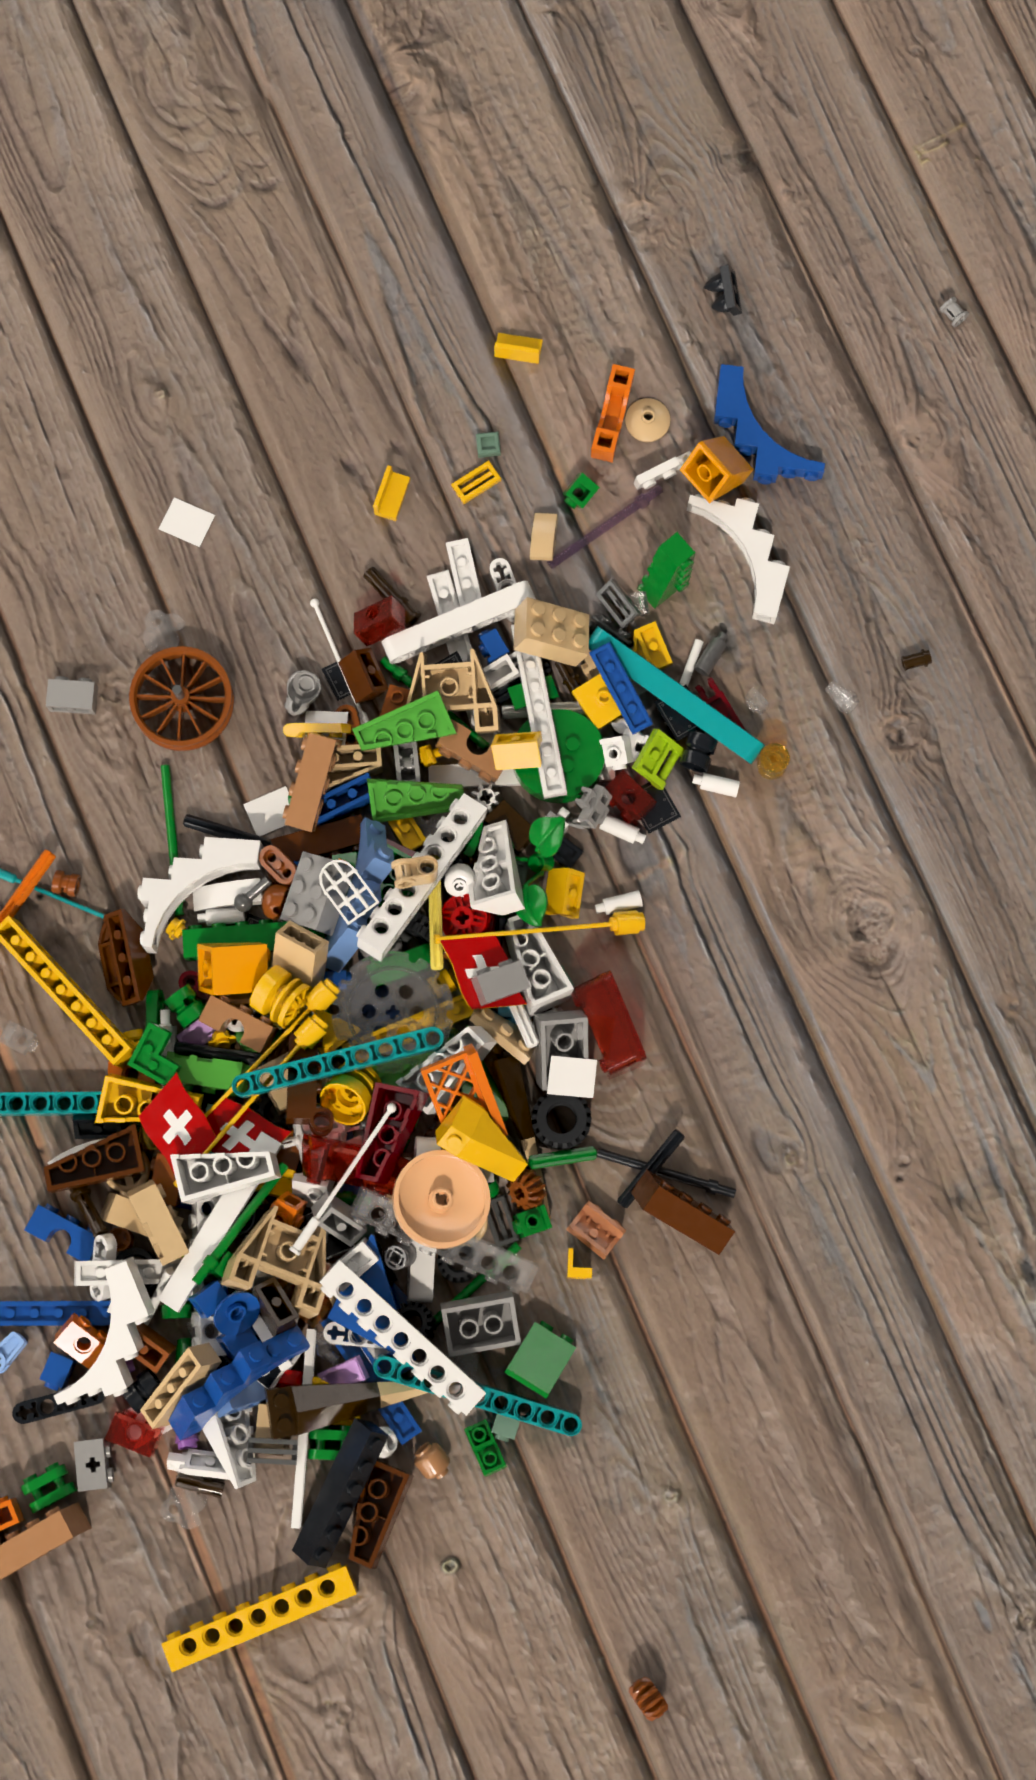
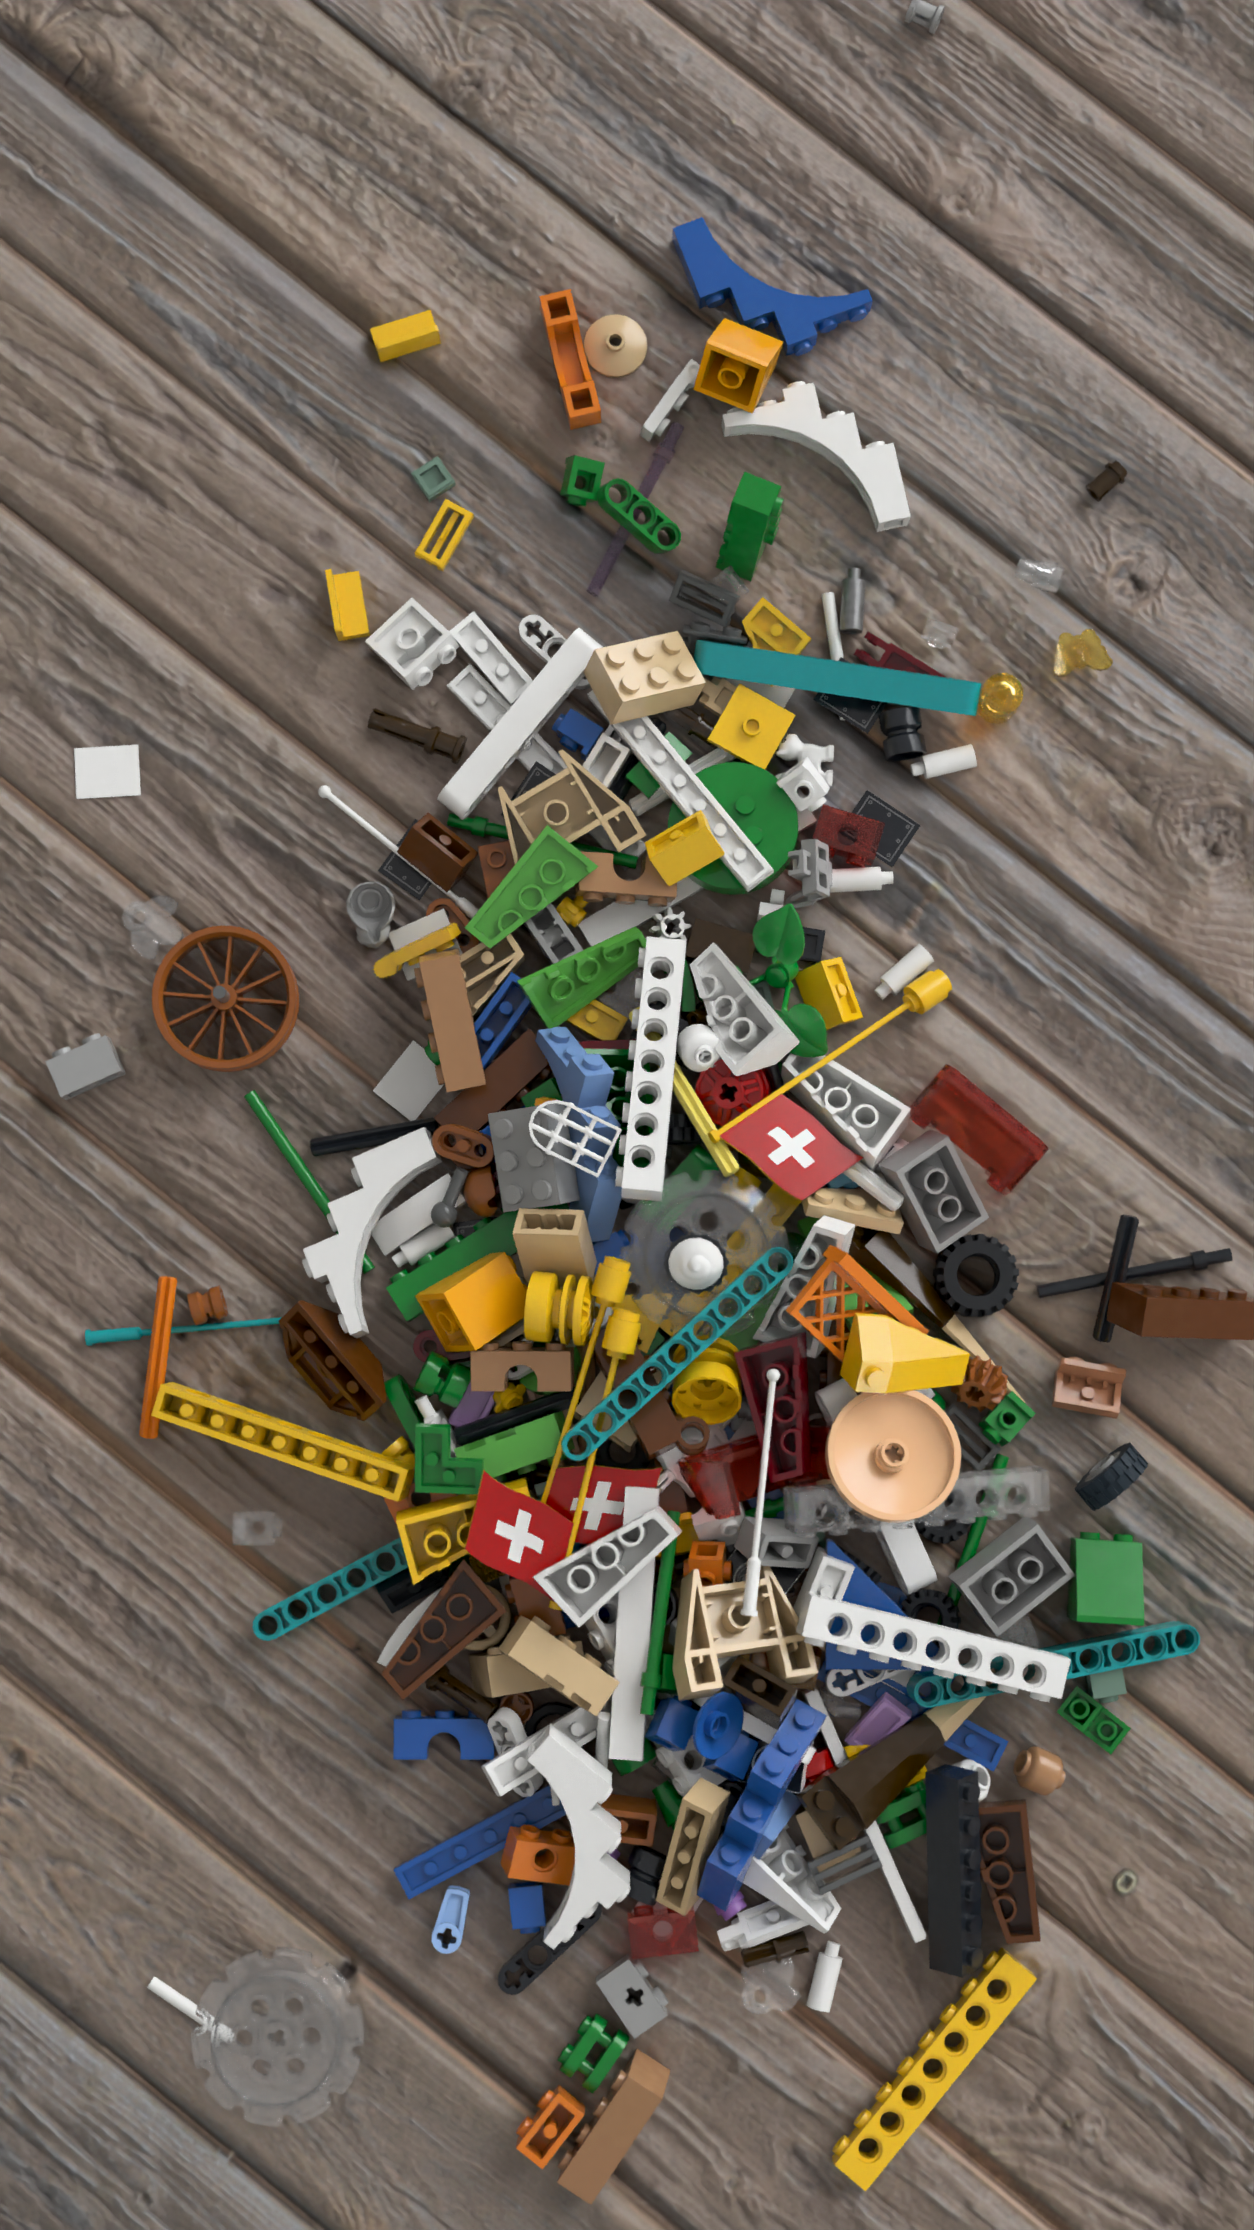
camera: 30 degrees left, 5 degrees up
(175, 928) = (375, 1289): yellow plate -> none
(222, 1521) = (825, 1978): none -> white cylinder
(379, 620) = (421, 773): clear red brick -> none
(380, 1011) = (696, 1263): none -> white piece
(404, 1253) = (877, 1542): flat silver wheel -> none
(412, 871) = (639, 1072): tan piece -> none
(419, 539) = (413, 644): none -> white plate
(500, 982) = (820, 1149): light grey brick -> none
(543, 536) = (566, 561): tan slope -> none
(562, 1157) = (1002, 1321): green axle -> none
(572, 1076) = (965, 1218): white sticker -> none
(575, 1272) = (1091, 1453): yellow panel -> none
(579, 1293) = (1111, 1476): none -> black wheel
(604, 519) = (654, 518): none -> green beam
(621, 688) = (768, 704): blue tile -> none
(653, 756) = (851, 759): lime plate -> none
(725, 282) = (621, 119): black tile -> none
(849, 763) = (1092, 654): none -> clear yellow animal

